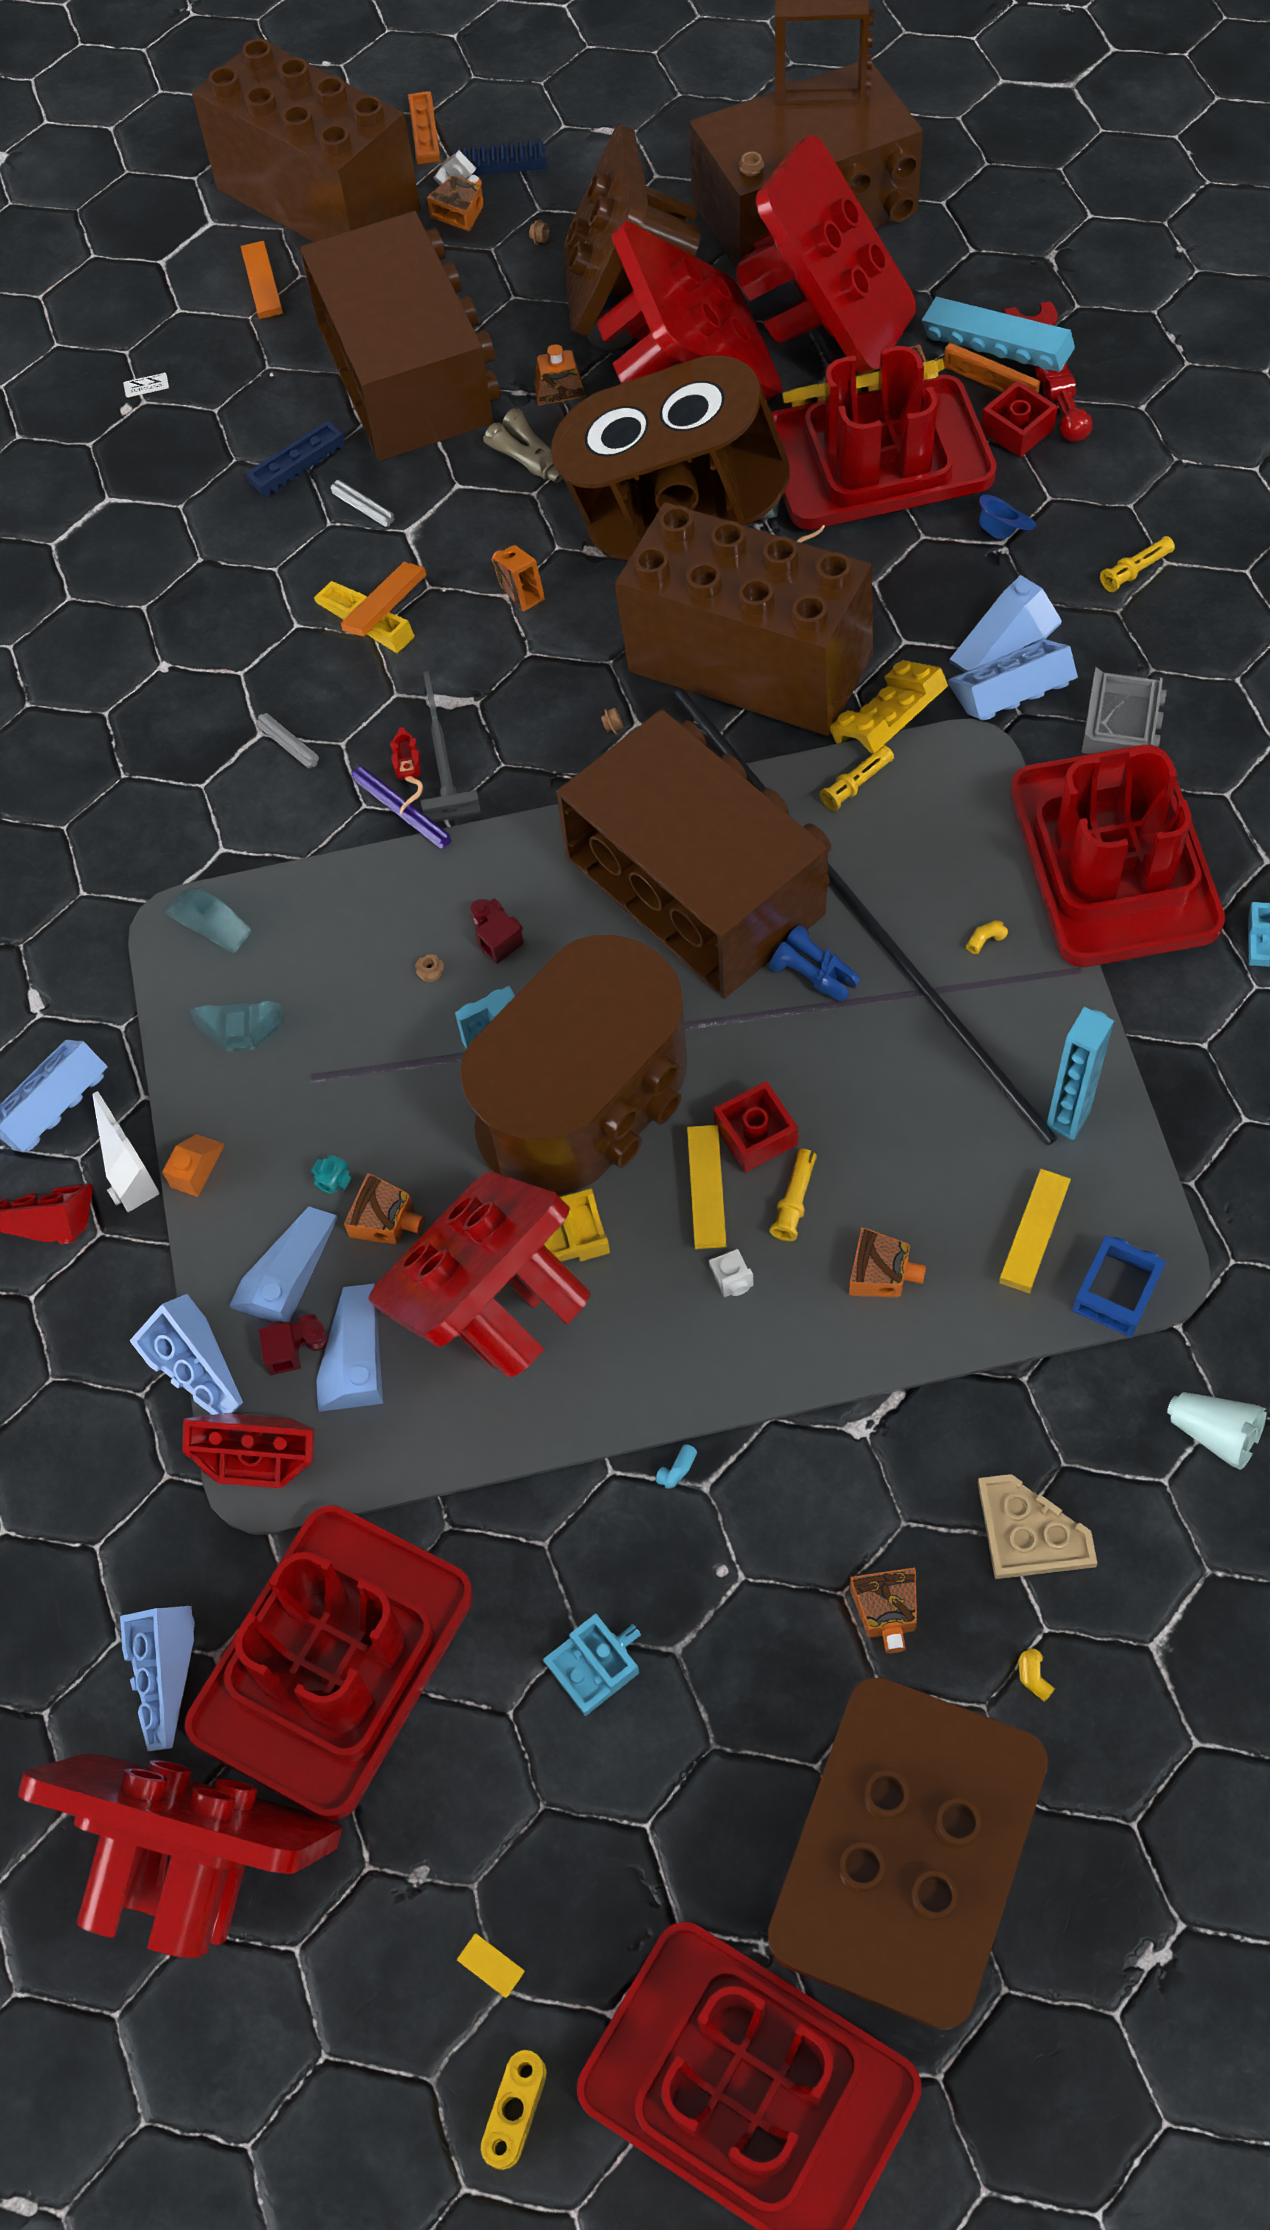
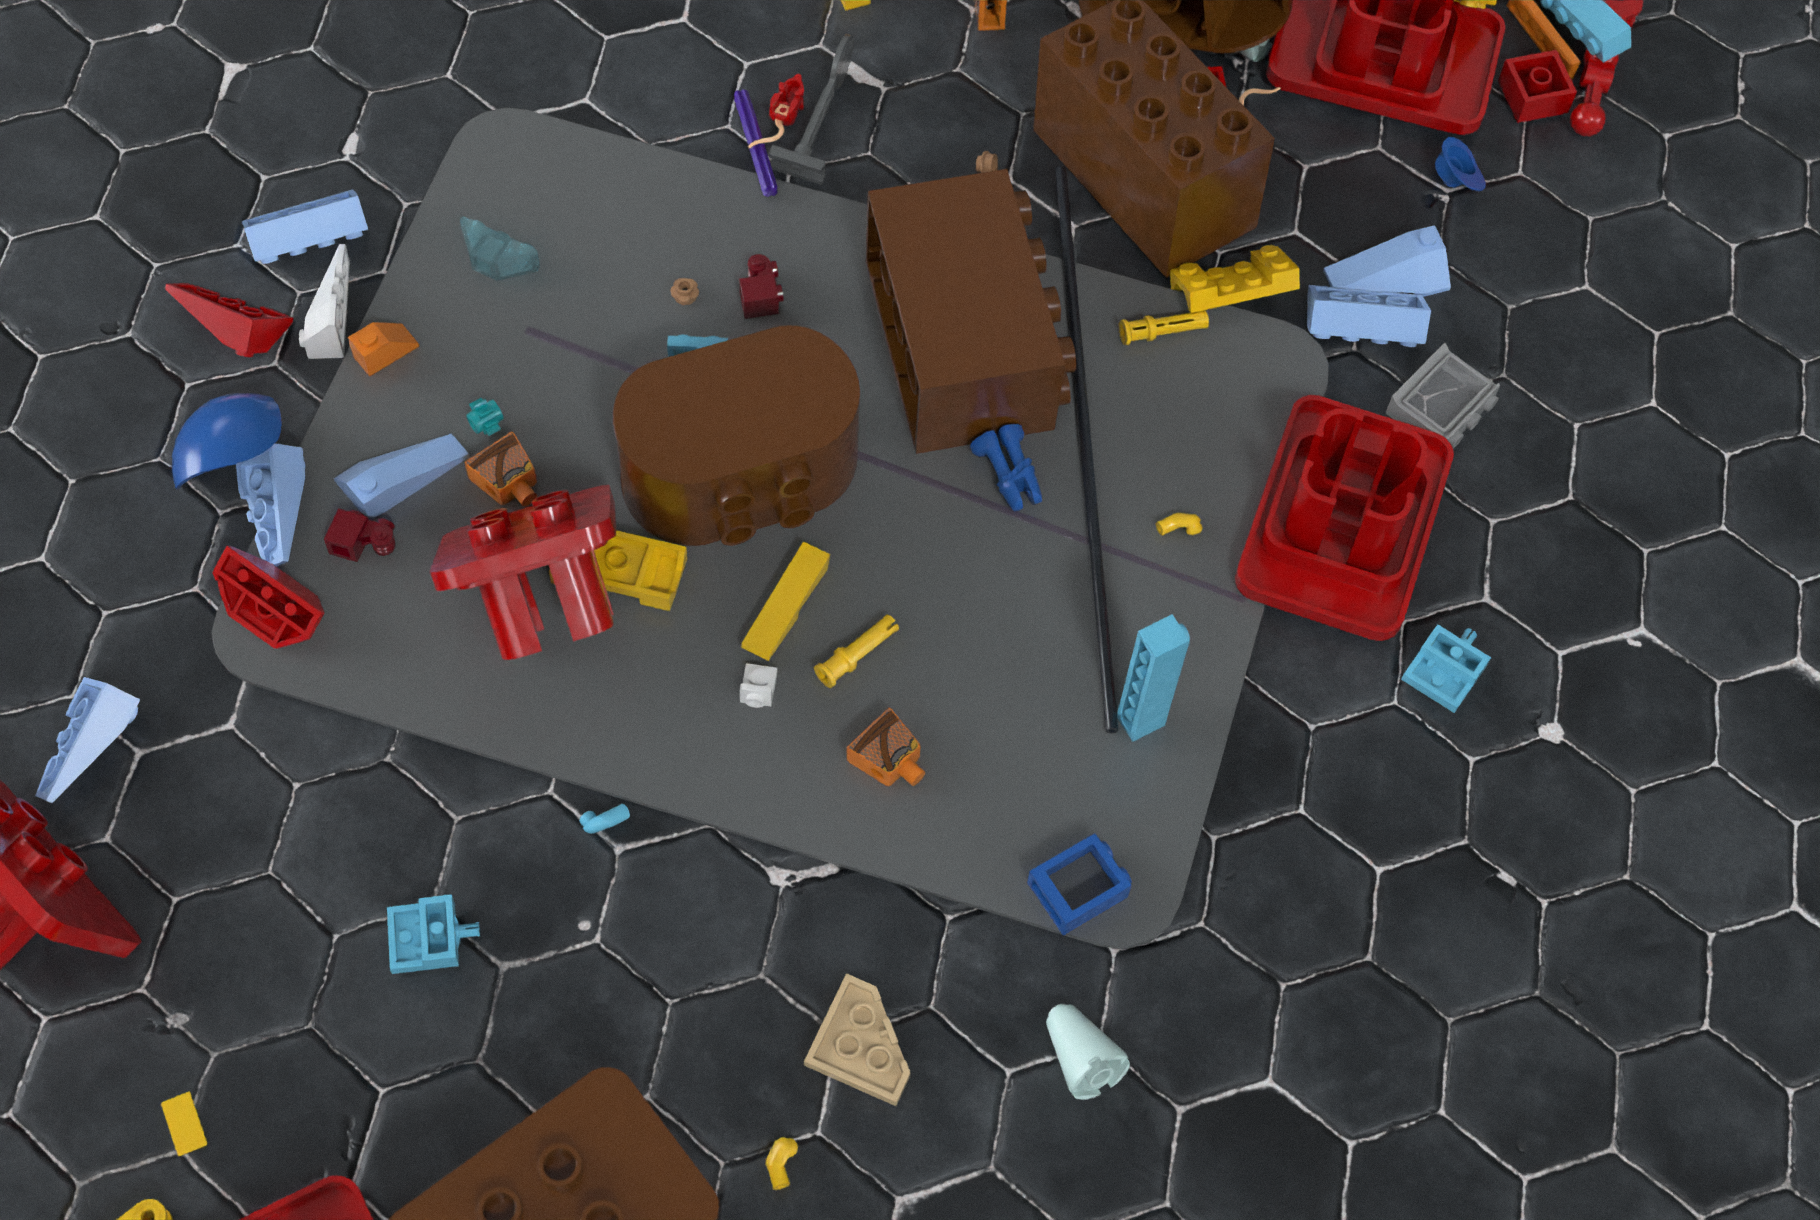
camera: 20 degrees right, 0 degrees up
(110, 1323) = (225, 434): none -> blue piece
(209, 918) = (531, 152): clear light blue slope -> none
(287, 740) = (700, 36): light grey axle -> none
(330, 1662) = (217, 805): red piece -> none
(351, 1359) = (401, 578): light blue wedge -> none
(756, 1126) = (861, 573): red brick -> none
(887, 1605) = (697, 1032): torso -> none
(1034, 1231) = (1039, 796): yellow slope -> none
(1128, 568) = (1543, 272): yellow pin -> none

